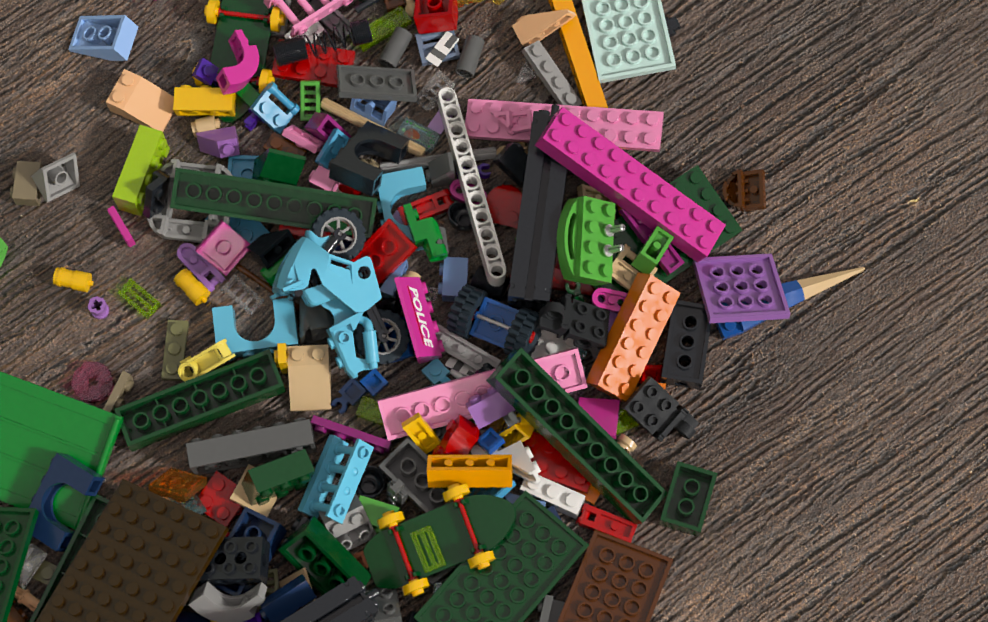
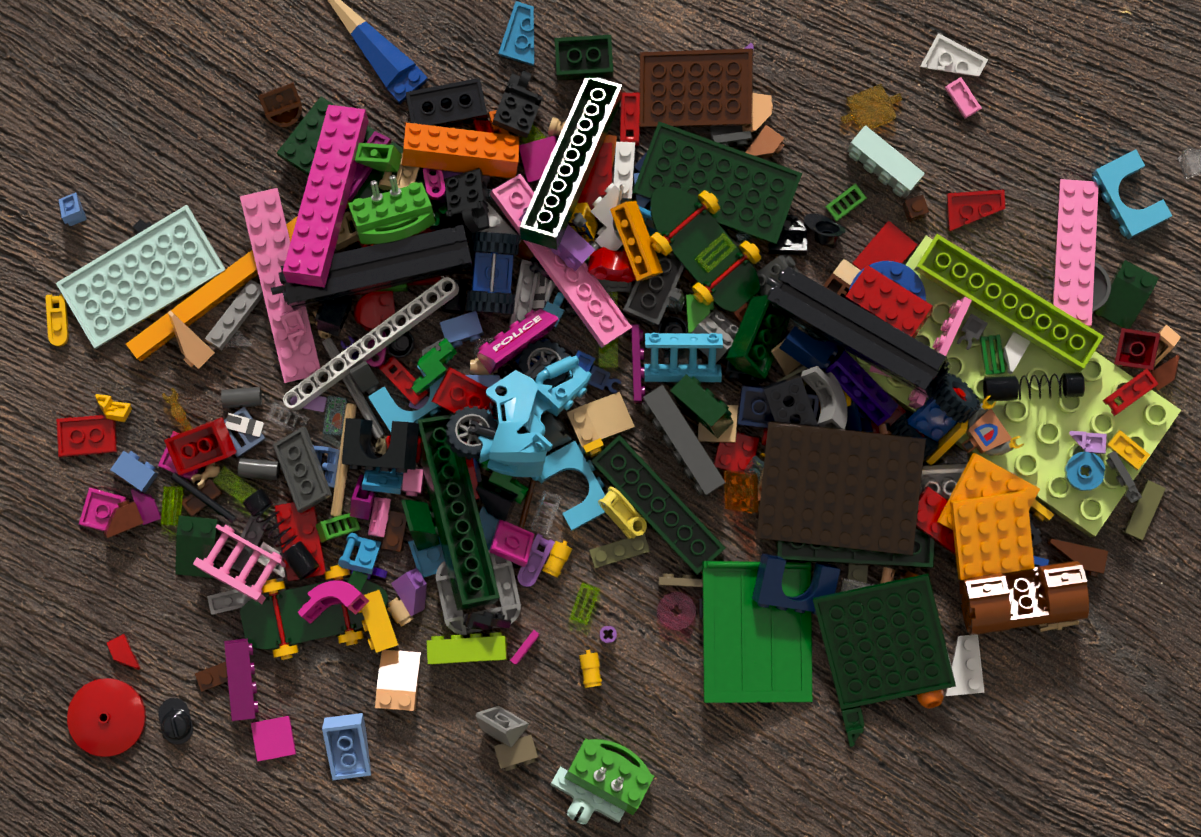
camera: 110 degrees left, 10 degrees up
(206, 72) = (351, 627): dark purple plate -> none
(421, 433) = (616, 298): yellow plate -> none
(490, 441) = (600, 237): blue tile -> none
(736, 445) = (519, 35): none -> dark azure wing
(744, 265) = (368, 72): medium lavender piece -> none

